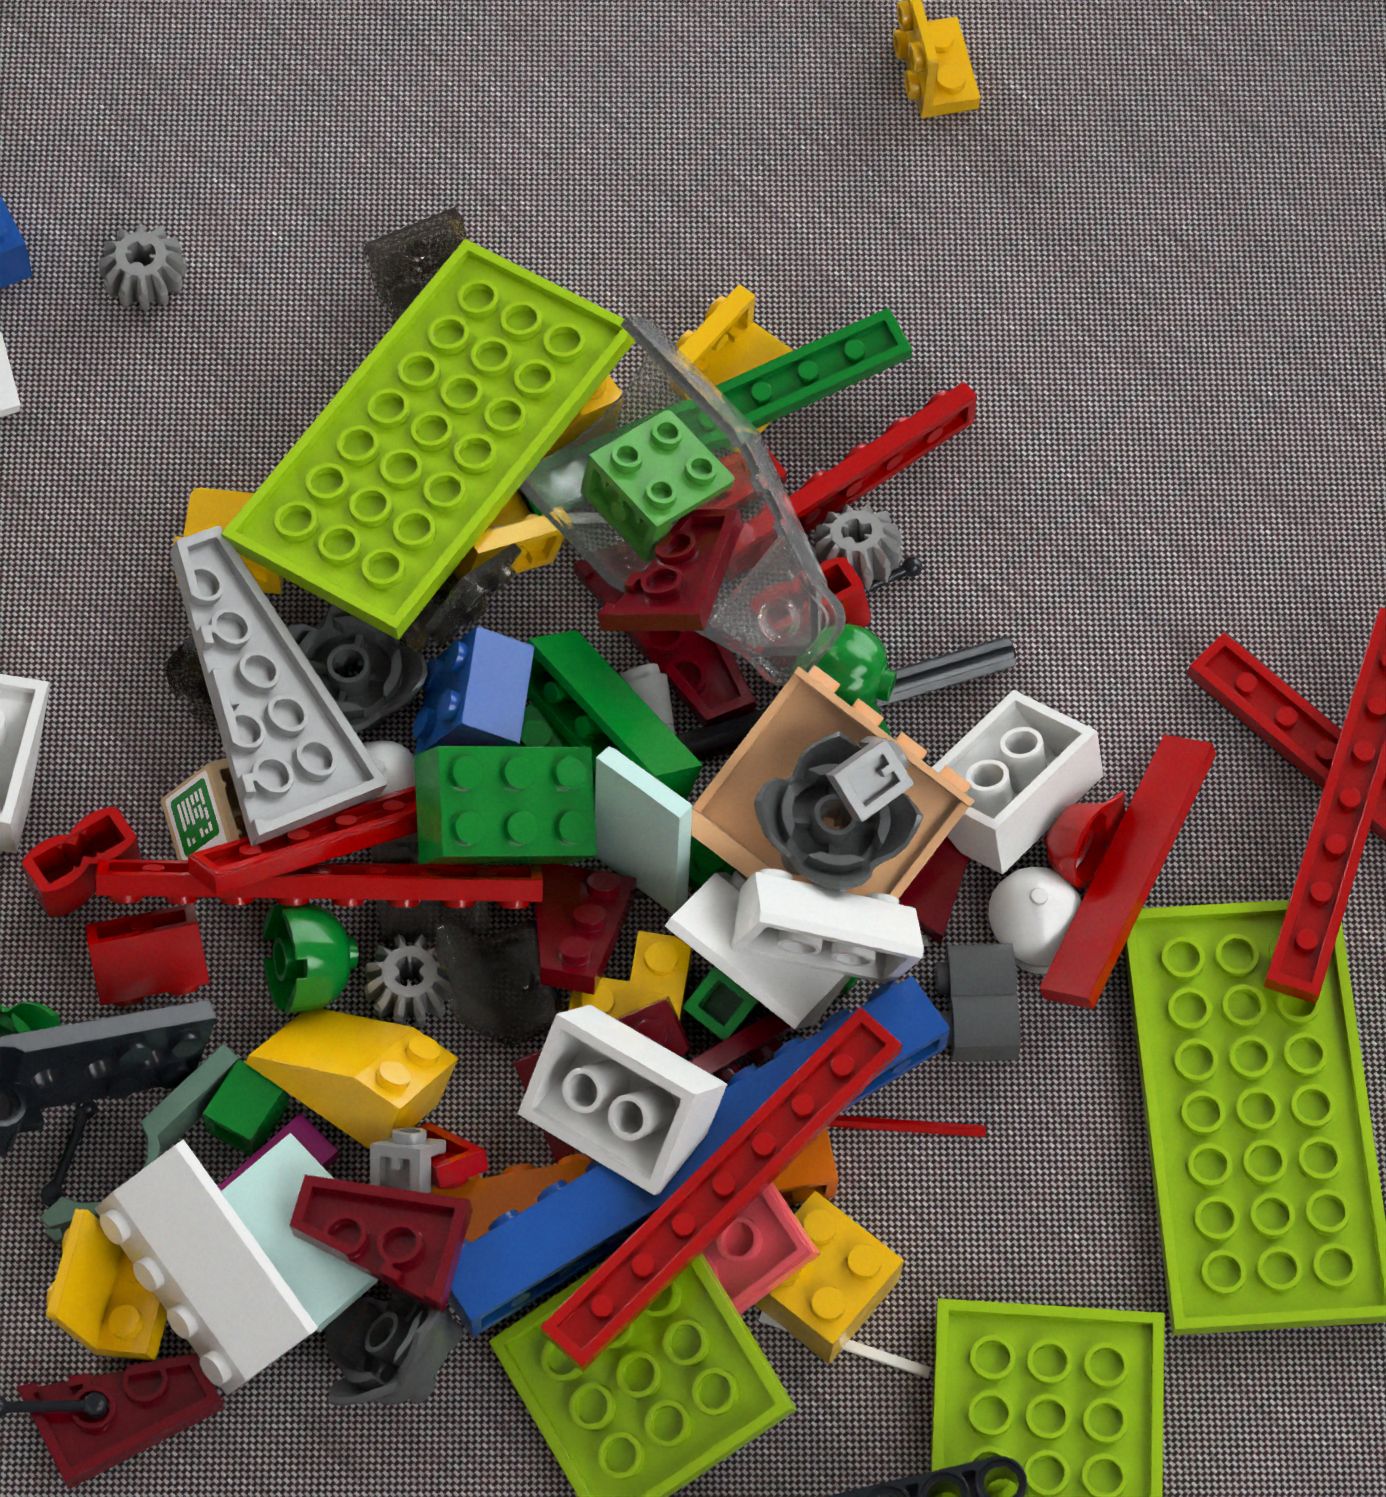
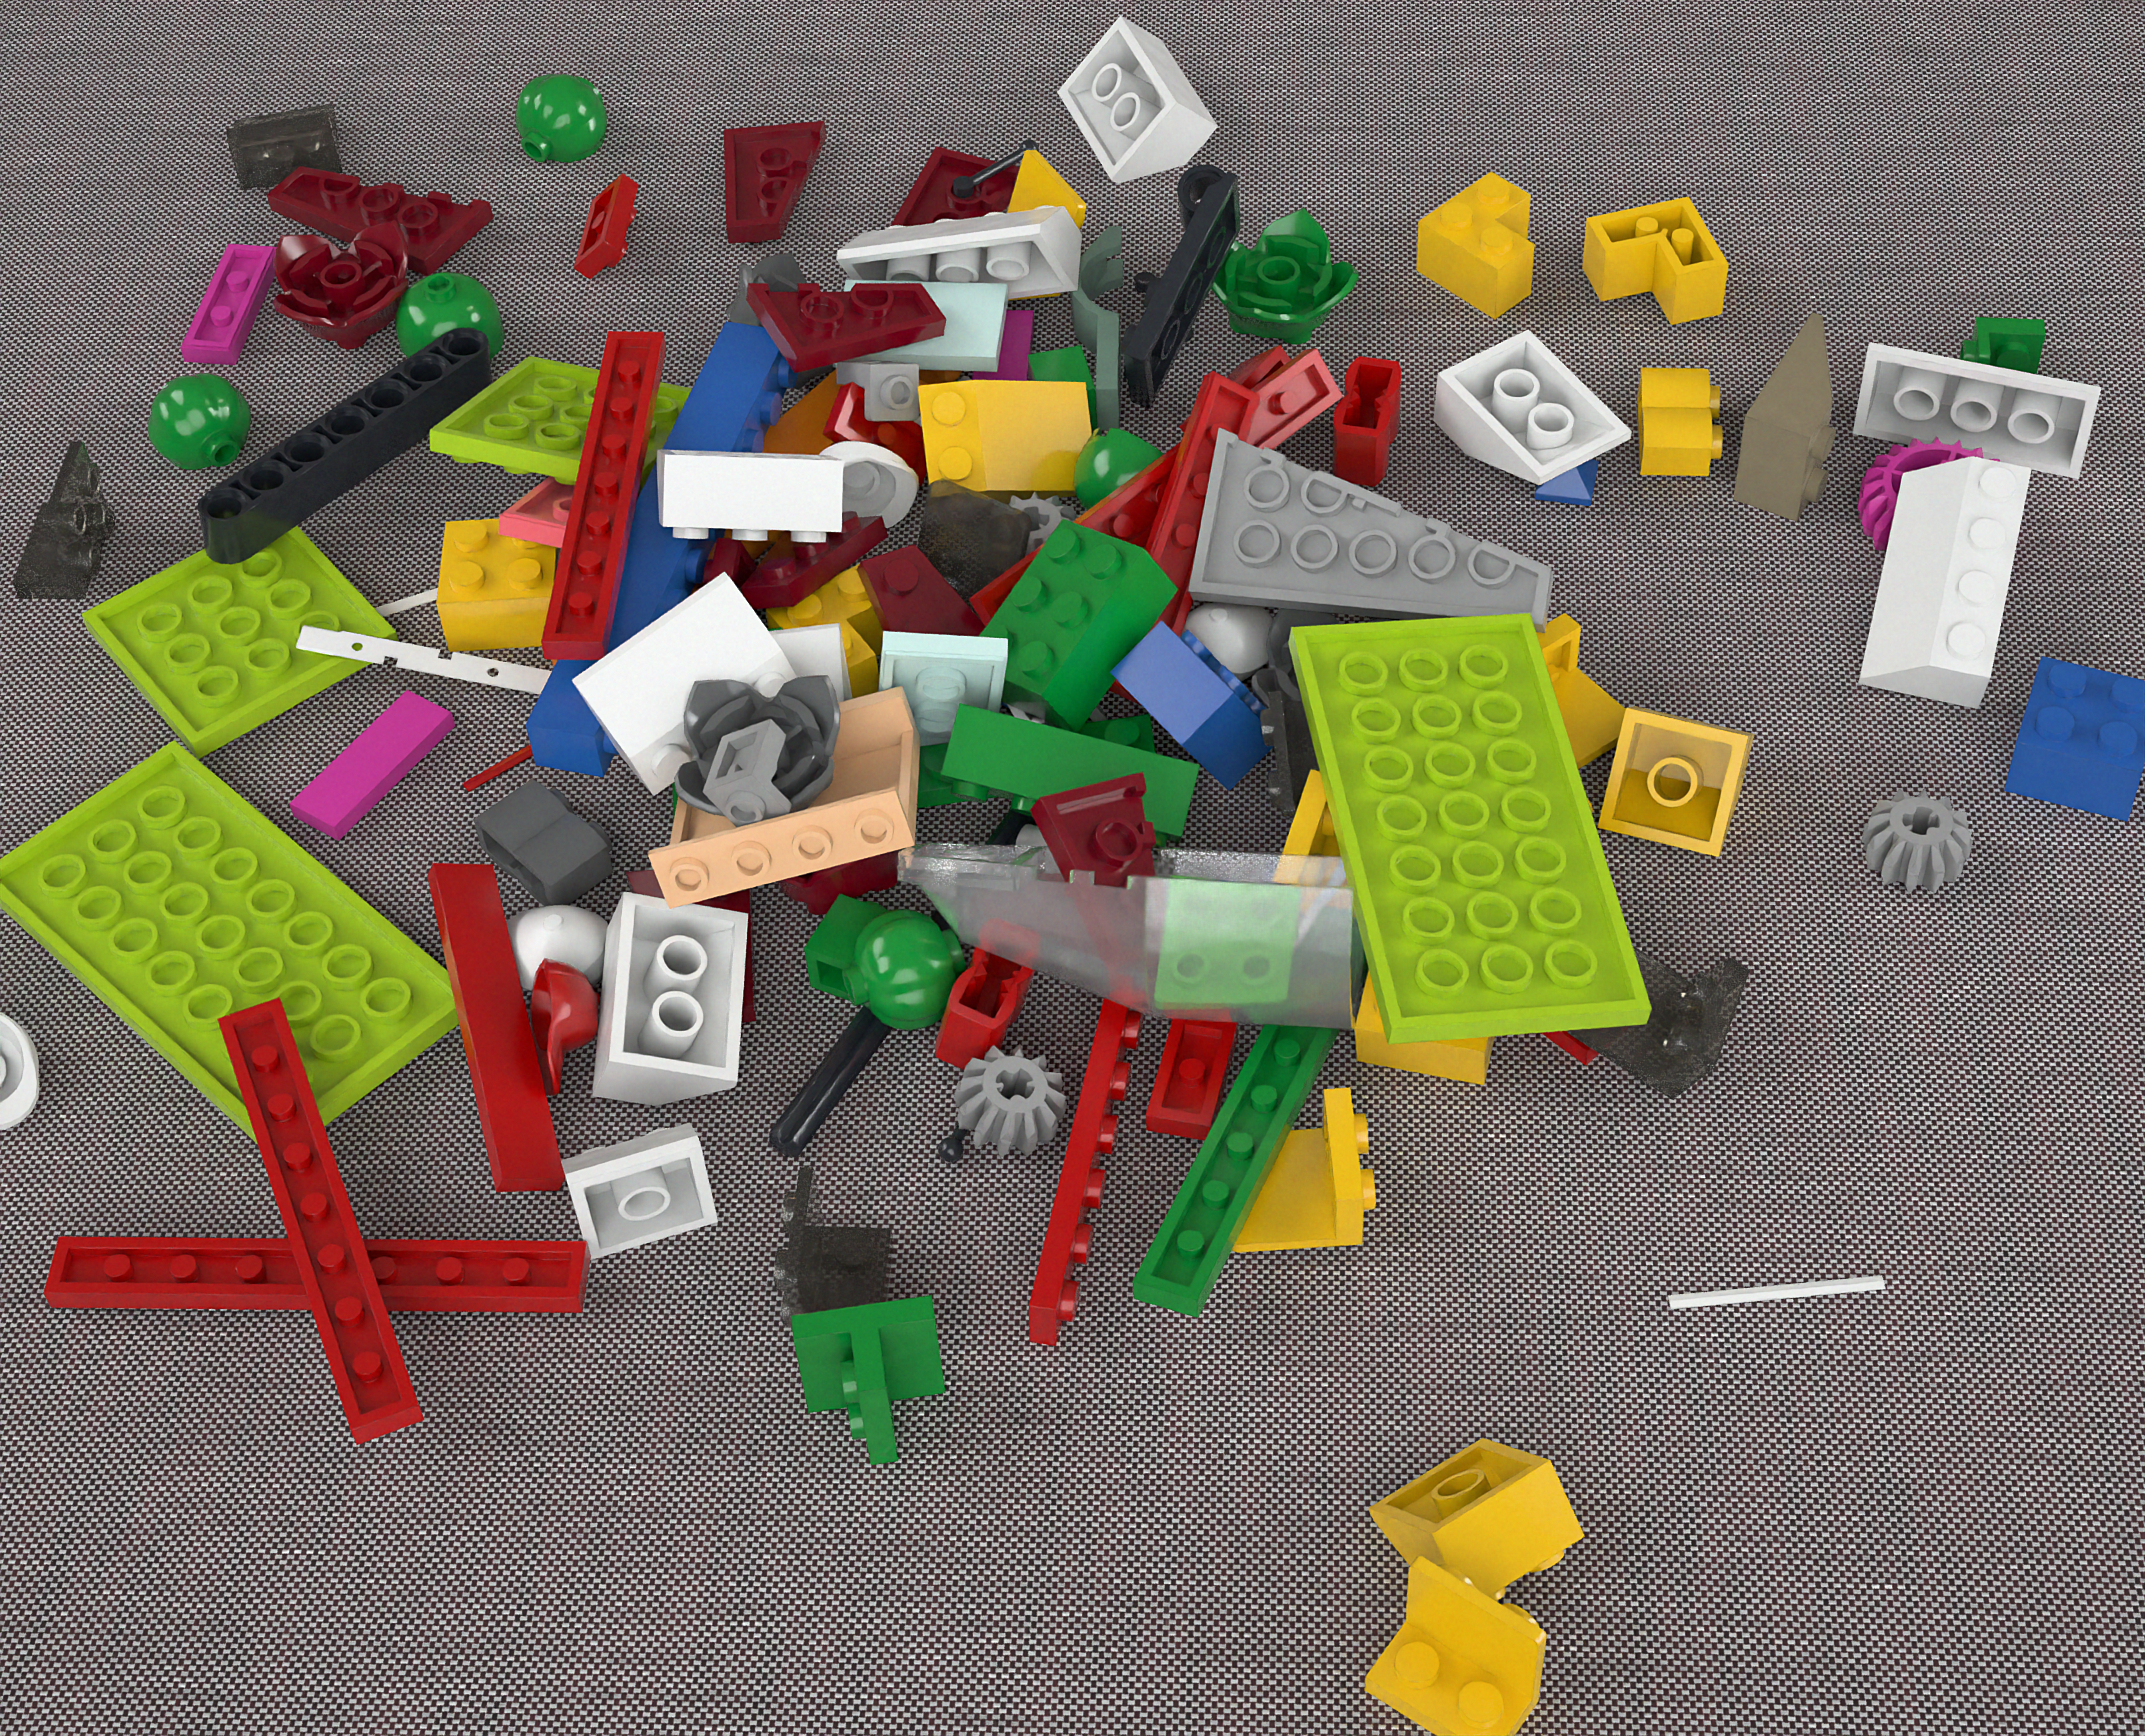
camera: 145 degrees right, 15 degrees down
(220, 425) = (1675, 780): none -> yellow slope
(493, 1126) = (875, 481): none -> white hat
(543, 117) = (1776, 1292): none -> white piece
(845, 120) = (1483, 1513): none -> yellow slope
(934, 1256) = (423, 659): none -> white piece
(1038, 1199) = (372, 765): none -> dark pink tile
(1061, 524) = (828, 1263): none -> clear smoke bracket
(1098, 433) = (865, 1361): none -> green bracket
(1132, 667) = (640, 1190): none -> white slope

